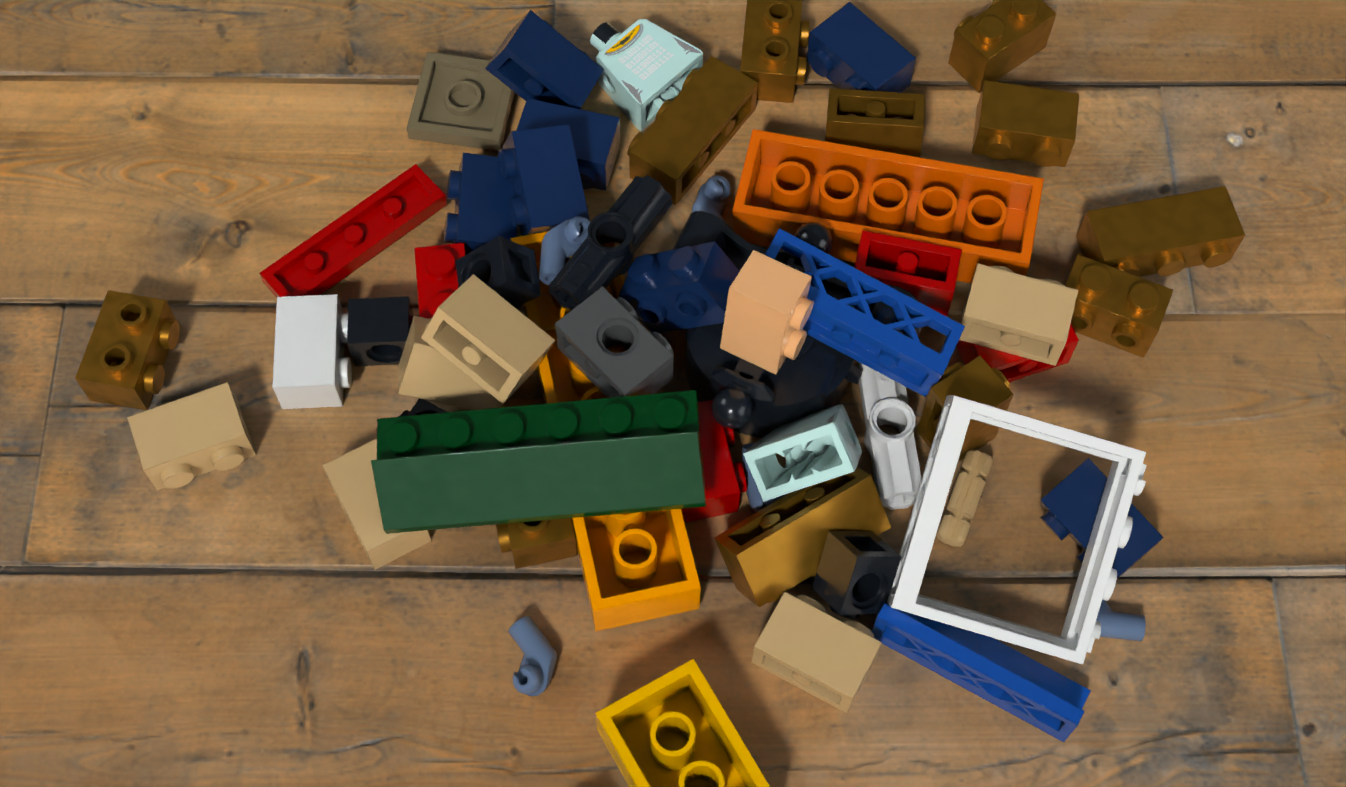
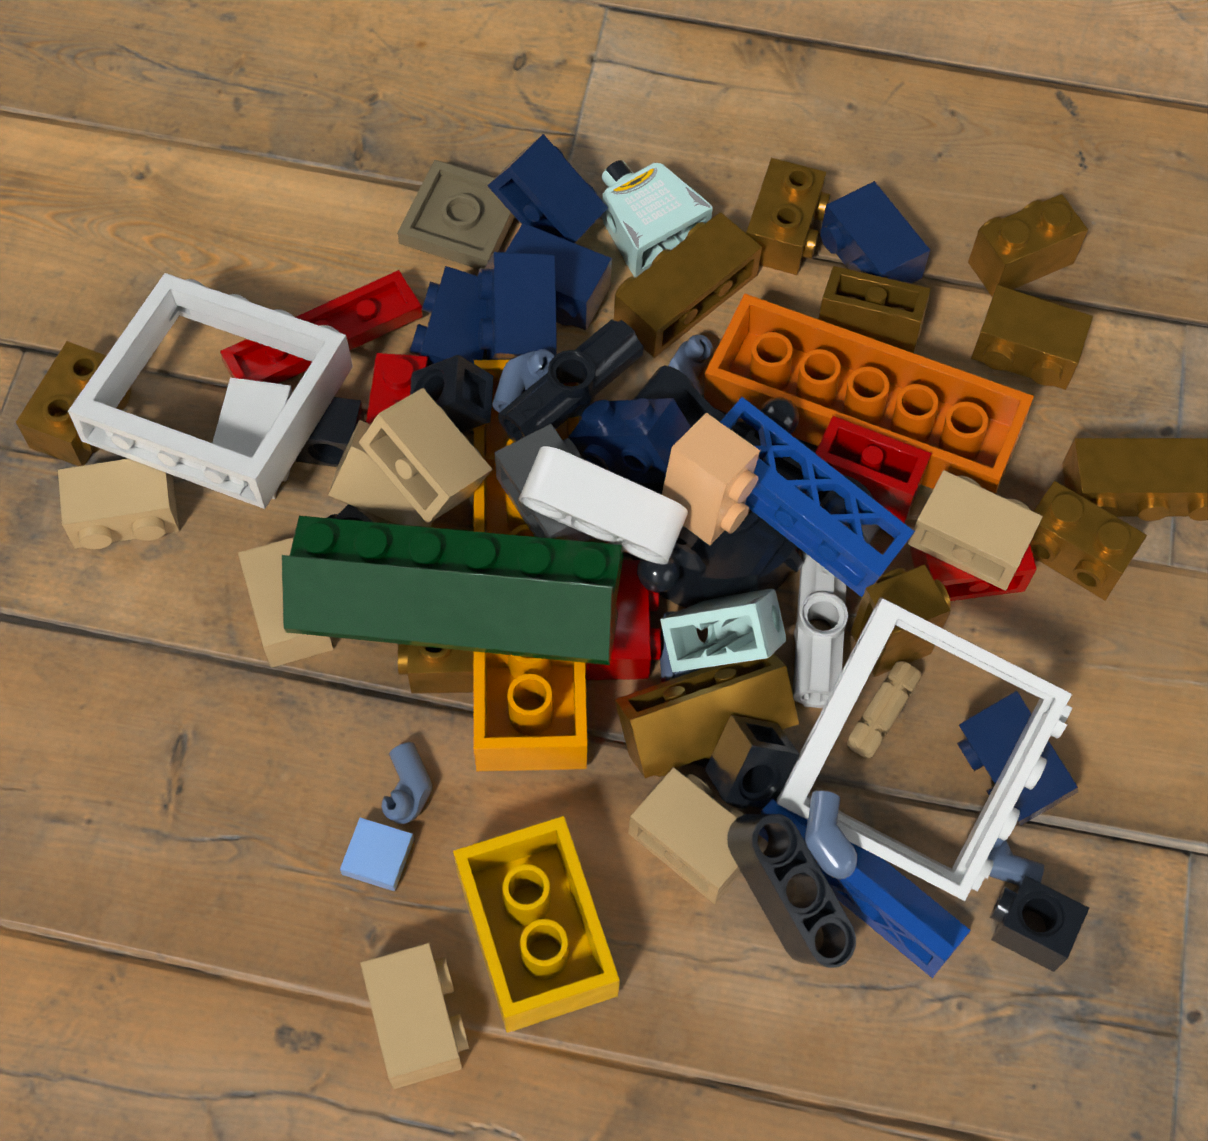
camera: 10 degrees right, 0 degrees up
(251, 380) = (189, 457): none -> white window
(518, 730) = (377, 854): none -> light blue tile
(671, 355) = (603, 505): none -> white beam
(943, 692) = (814, 900): none -> black beam
(944, 632) = (826, 840): none -> sand blue arm
(1170, 659) = (1060, 913): none -> black brick

